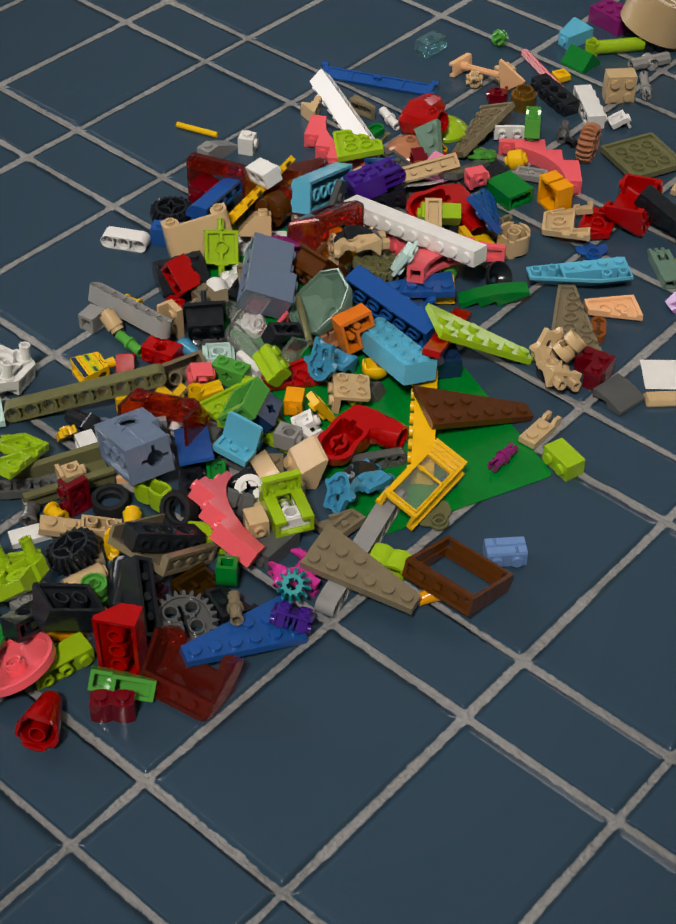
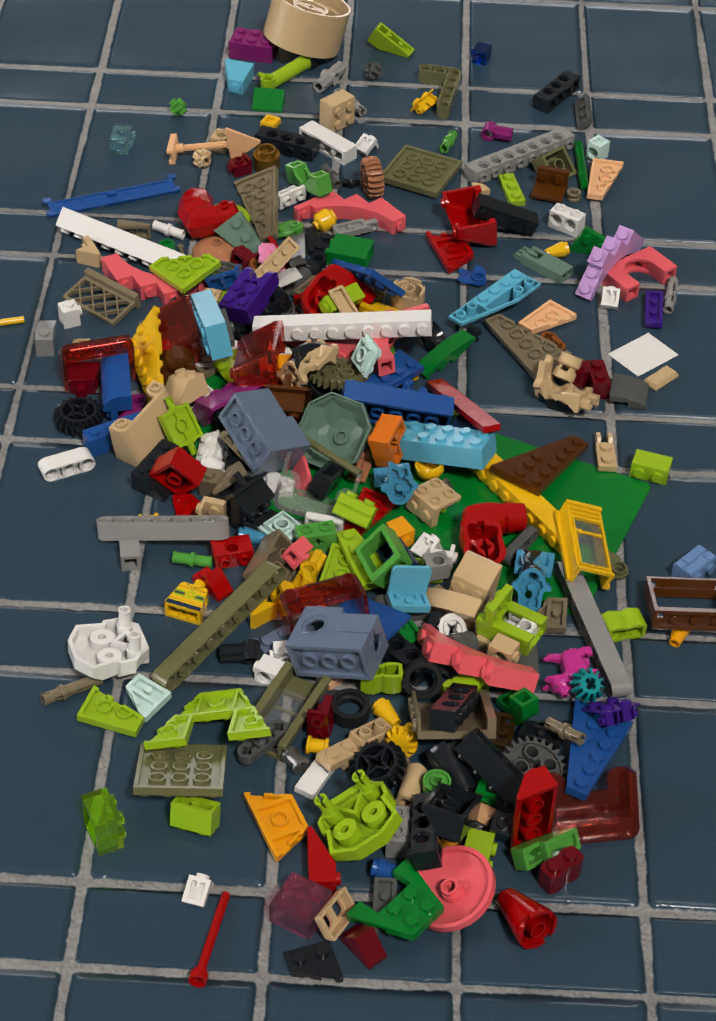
camera: 40 degrees left, 0 degrees up
(66, 433) = (240, 670): yellow plate -> none
(69, 470) = (293, 701): tan brick -> none
(111, 321) = (155, 547): tan brick -> none
(264, 173) = (153, 334): white brick -> none
(296, 140) = (110, 289): none -> dark tan fence
(317, 403) = (427, 524): yellow wing -> none
(348, 565) = (604, 644): dark tan wing -> none
(461, 332) = (485, 399): lime wing -> none
(476, 176) = (322, 252): coral brick -> none
(502, 457) = (606, 490): magenta pin -> none
(533, 61) = (233, 119): axle -> none
(535, 290) = (474, 331): none -> black piece
(554, 191) = (397, 237): light orange piece -> none
(562, 222) = (426, 263): tan wing -> none

